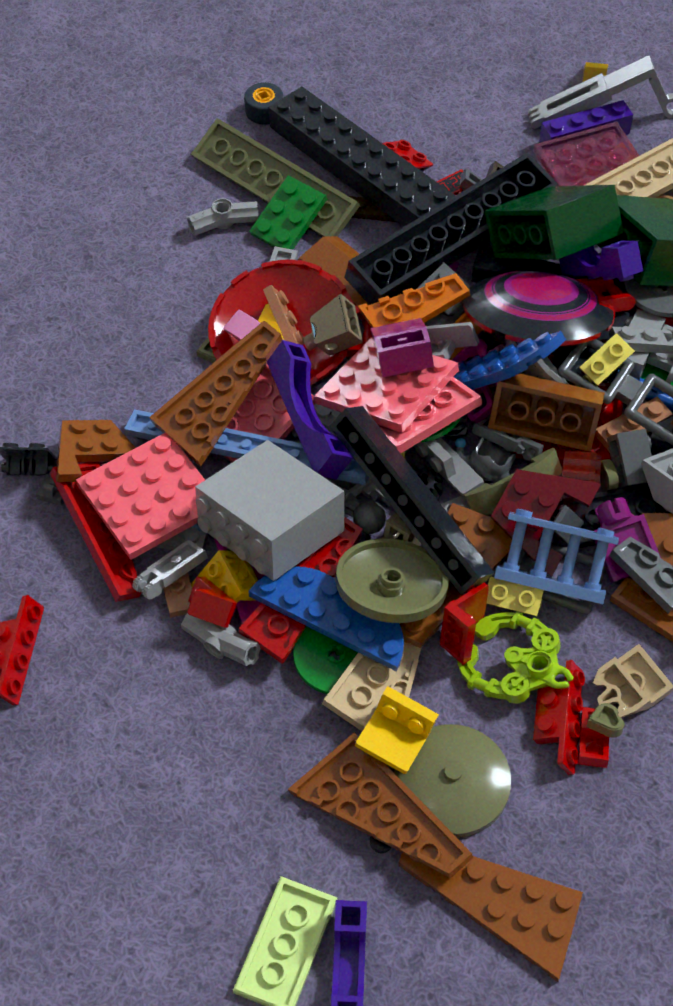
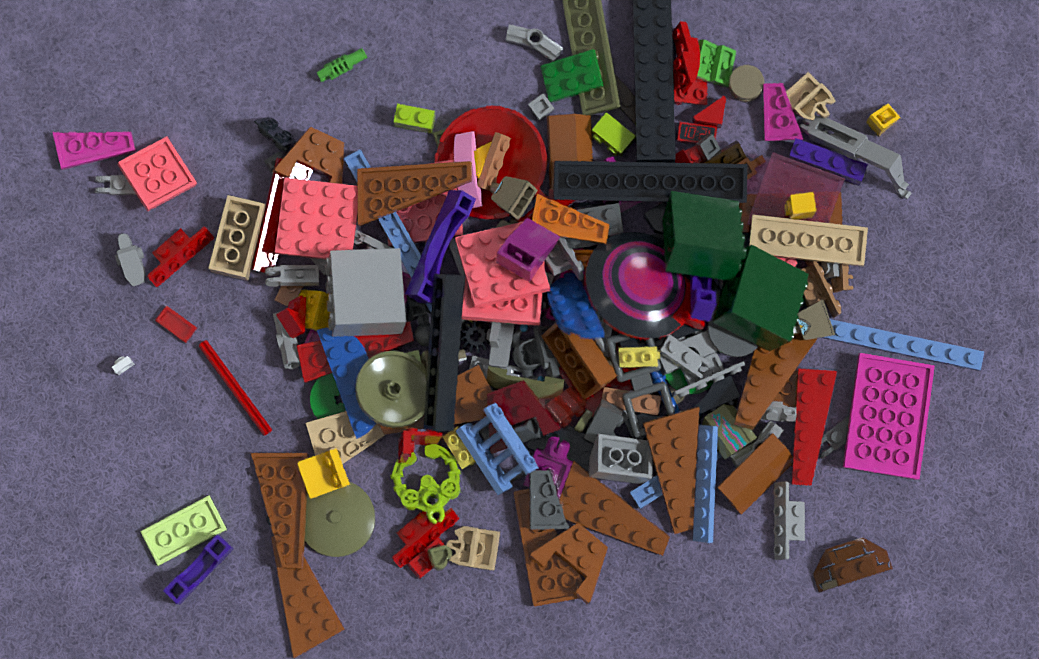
camera: 45 degrees right, 25 degrees up
(45, 359) = (341, 65): none -> bright green hinge
(46, 813) = (122, 364): none -> white plate
(73, 580) = (237, 238): none -> tan brick
(74, 724) = (176, 324): none -> red tile
(166, 348) = (414, 118): none -> lime brick
(206, 736) = (235, 388): none -> red axle
(370, 230) = (612, 135): none -> lime brick
(383, 128) = (688, 58): none -> red slope
(406, 128) = (715, 63): none -> bright green slope
(449, 160) = (712, 114): none -> red slope
(451, 124) = (746, 83): none -> dark tan head
(506, 125) = (778, 114): none -> dark pink wing
(518, 97) = (810, 97): none -> tan plate
(609, 149) = (800, 206): none -> yellow brick

